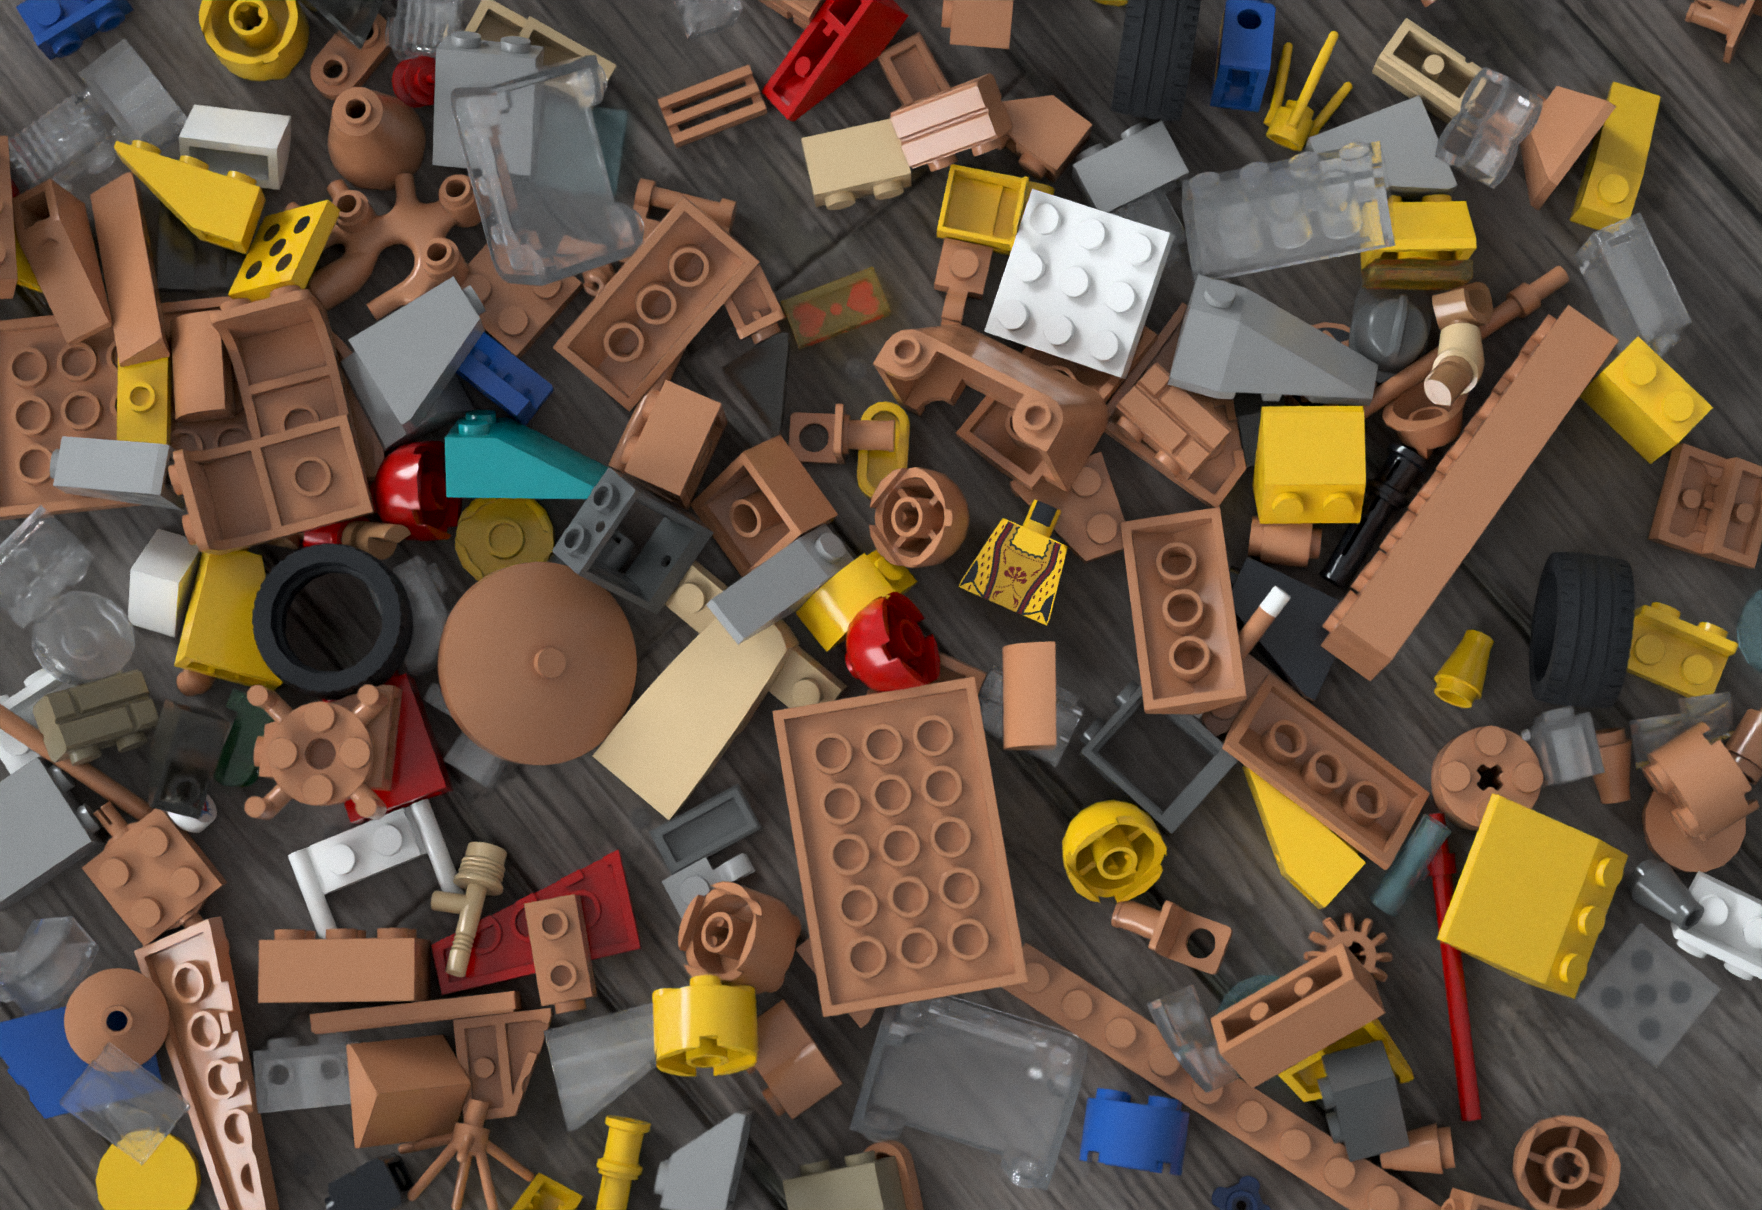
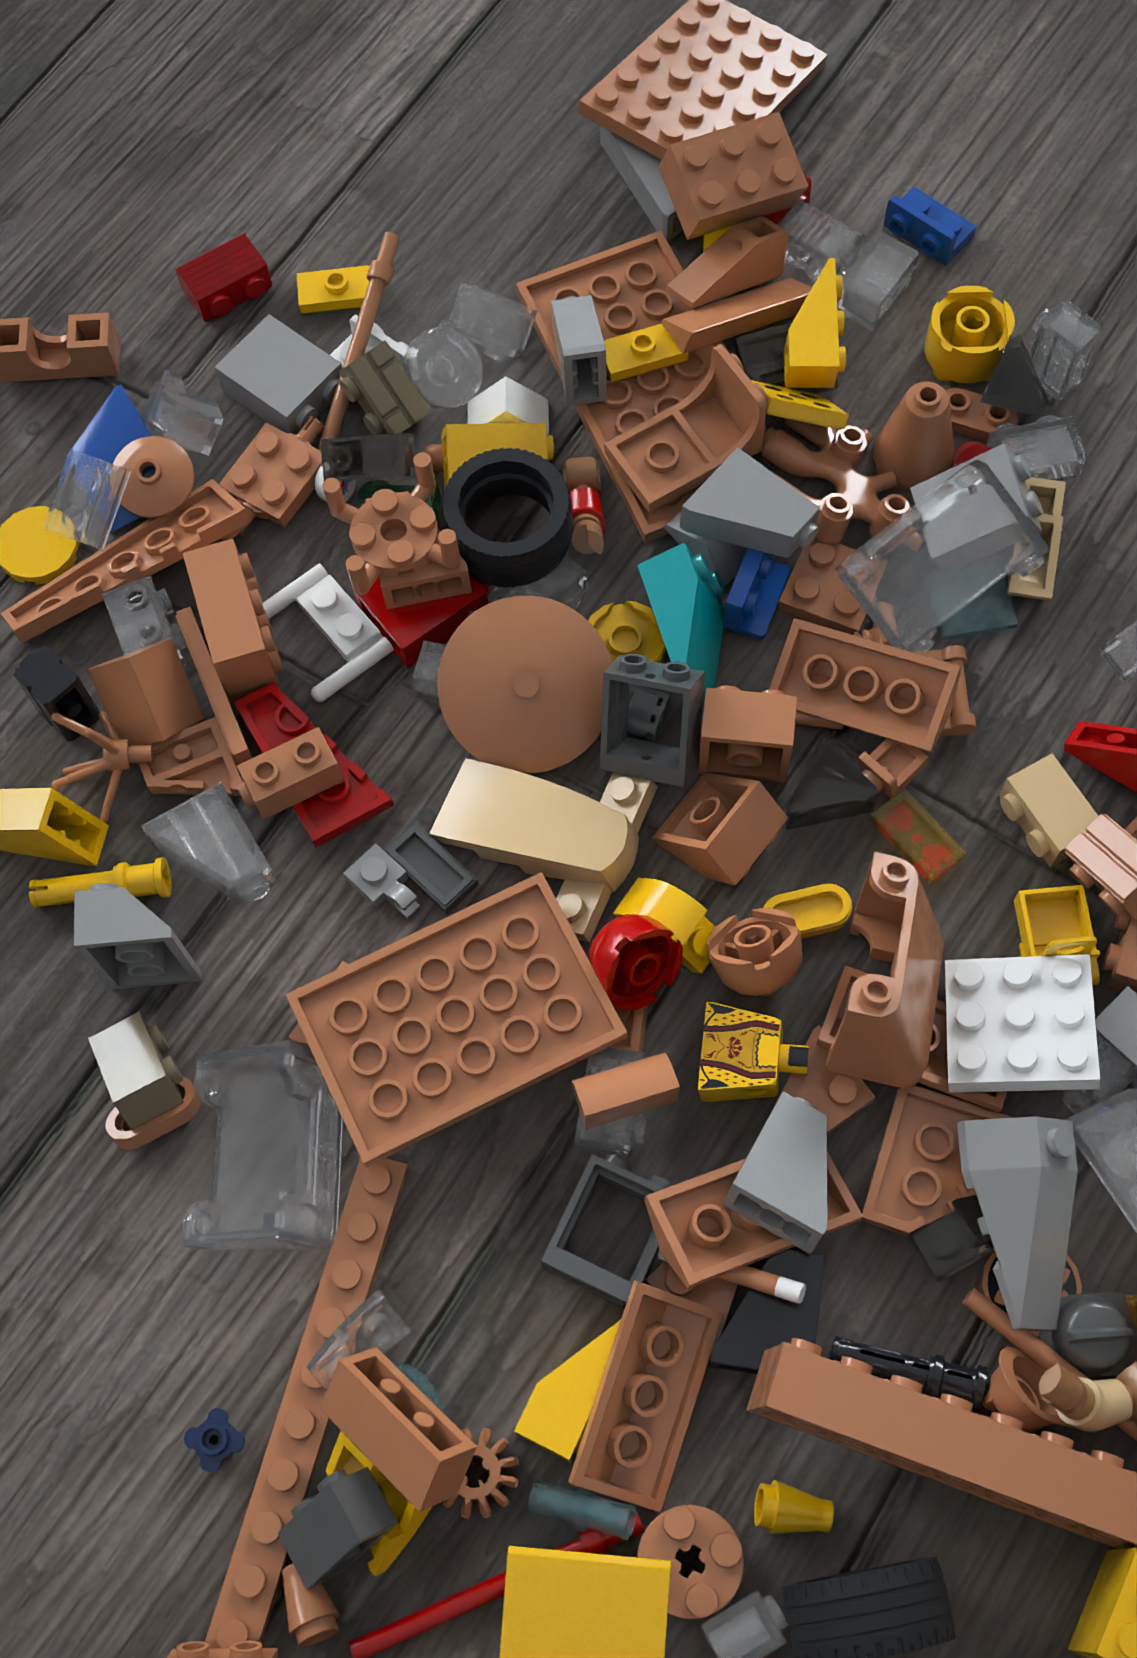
camera: 70 degrees right, 15 degrees down
(200, 370) = (673, 380): nougat brick -> none
(239, 142) = (872, 358): white brick -> none
(271, 486) = (598, 435): nougat bracket -> none
(413, 491) = (625, 549): red cylinder -> none
(479, 875) = (341, 702): tan piece -> none
(705, 1027) = (251, 900): yellow brick -> none
(706, 89) = (1055, 681): nougat tile -> none
(739, 937) = (338, 911): nougat brick -> none
(780, 584) = (653, 844): light grey slope -> none
(791, 1063) = (248, 989): nougat brick -> none
(843, 435) = (806, 869): nougat bracket -> none
(961, 274) = (988, 928): nougat plate -> none
(1112, 851) = (509, 1212): yellow cylinder -> none
(1134, 1133) = (252, 1311): blue brick -> none
(1162, 566) = (786, 1175): none -> light grey slope
(1170, 423) = (924, 1144): nougat brick -> none
(1170, 932) = (453, 1293): nougat bracket -> none
(1284, 543) = (855, 1290): nougat brick -> none
(1310, 464) = (934, 1287): yellow slope -> none

